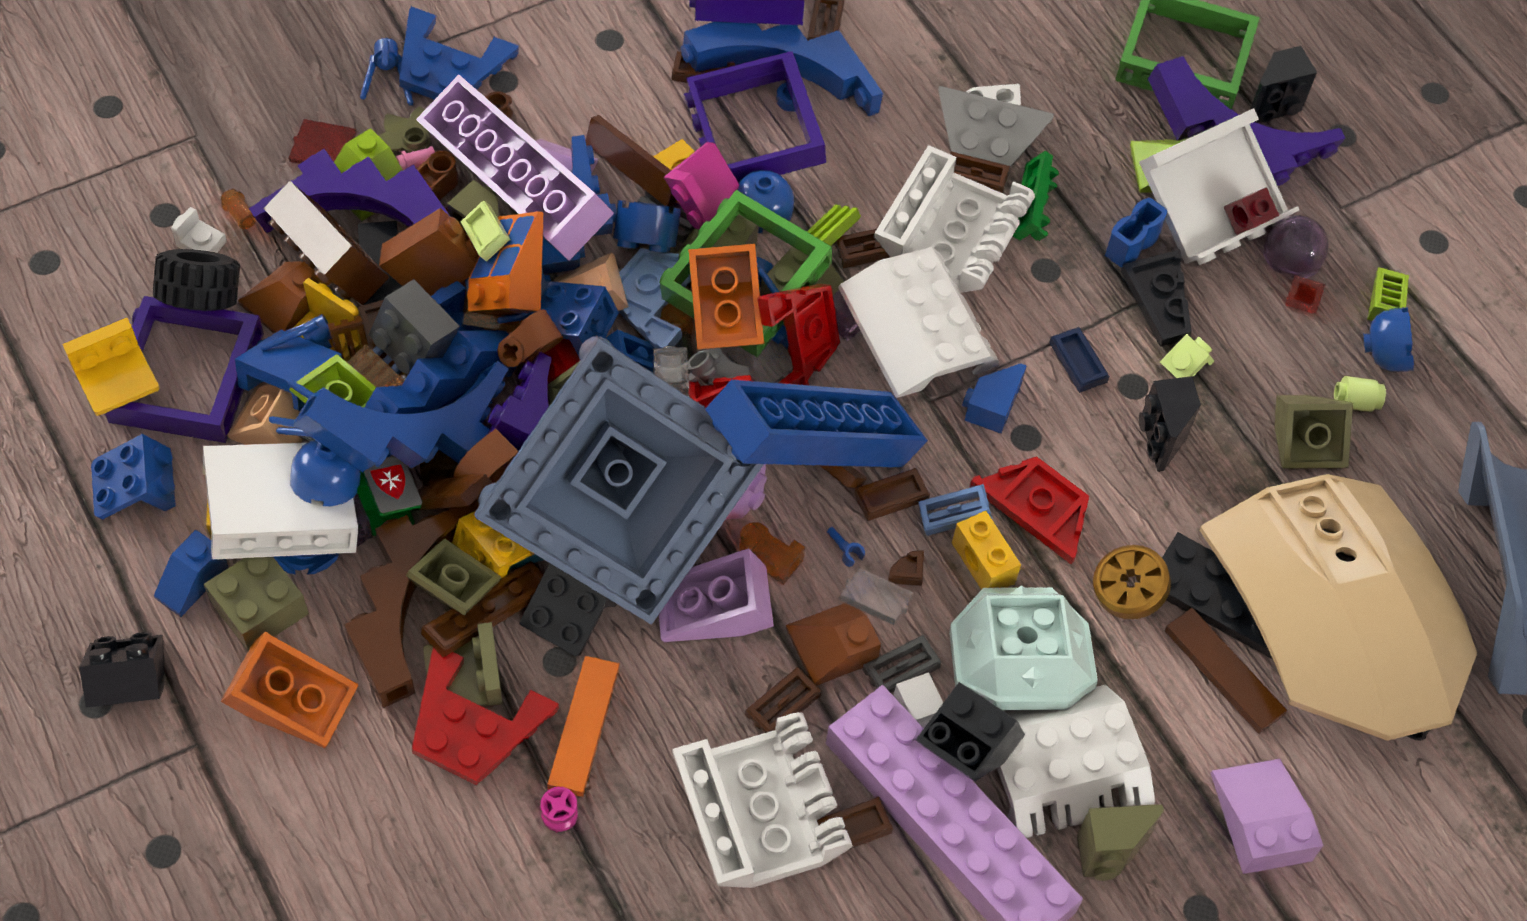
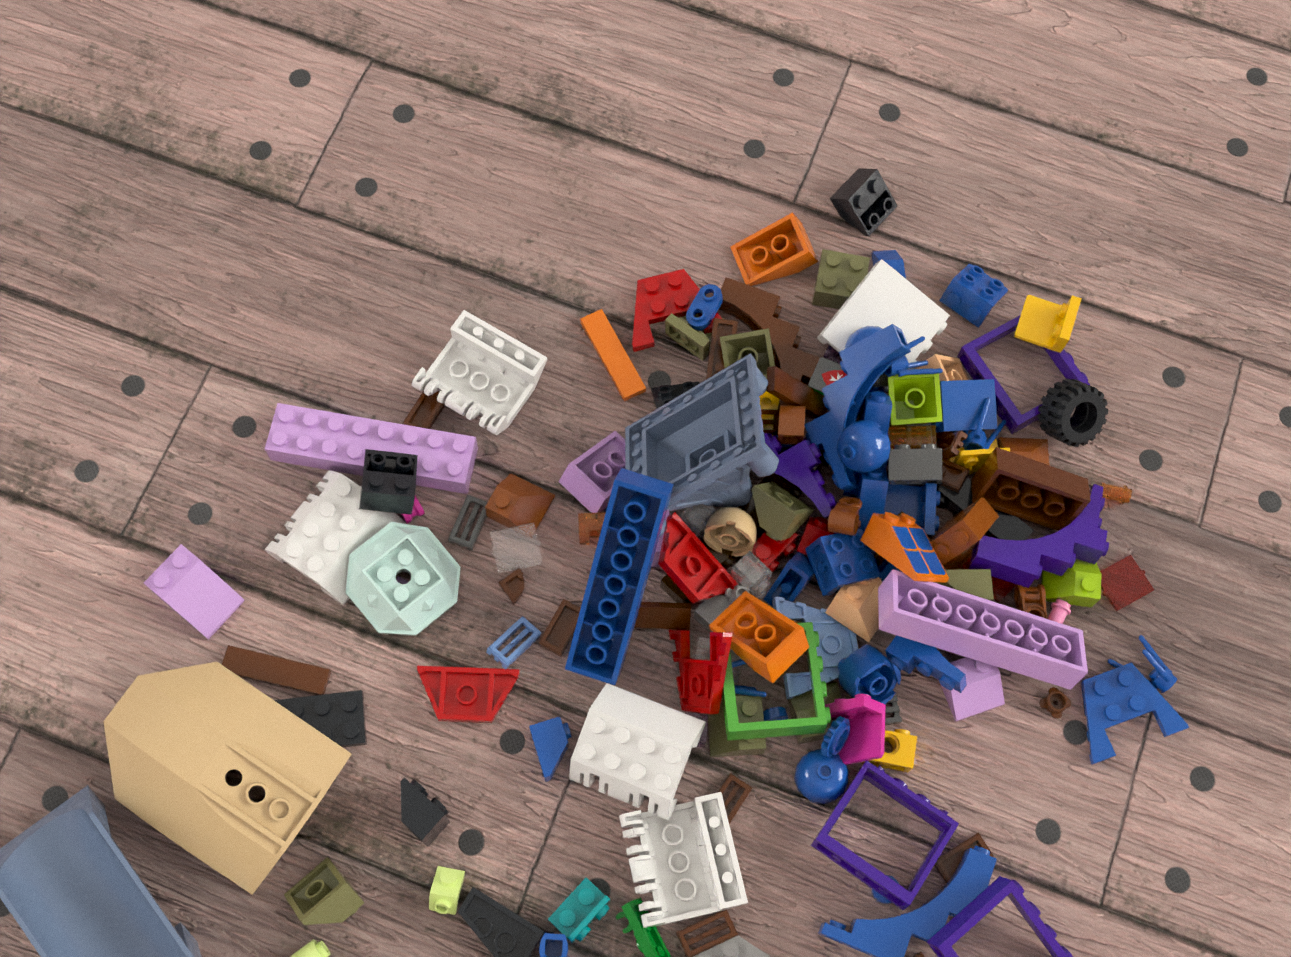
camera: 140 degrees right, 10 degrees up
(195, 234) = (1114, 457): white bracket -> none
(405, 133) = (1093, 633): olive plate -> none
(441, 676) = (706, 306): none -> blue plate
(452, 369) = (863, 446): none -> blue cylinder
(485, 230) = (942, 556): yellowish green tile -> none
(557, 801) = (583, 295): dark pink wheel -> none
(630, 159) = (933, 727): reddish brown tile -> none
(726, 190) = (835, 737): none -> blue gear
(761, 722) = (515, 469): reddish brown tile -> none
(835, 223) = (764, 789): lime tile -> none
(846, 547) = (560, 569): blue hand -> none
(919, 697) = (439, 501): white brick -> none
(986, 552) = (471, 624): yellow brick -> none
(1075, 259) = (580, 910): none -> teal bracket
(1079, 359) = (520, 830): dark blue tile -> none
(1113, 837) = (268, 500): olive slope -> none
(1138, 600) = (374, 664): pearl gold wheel -> none

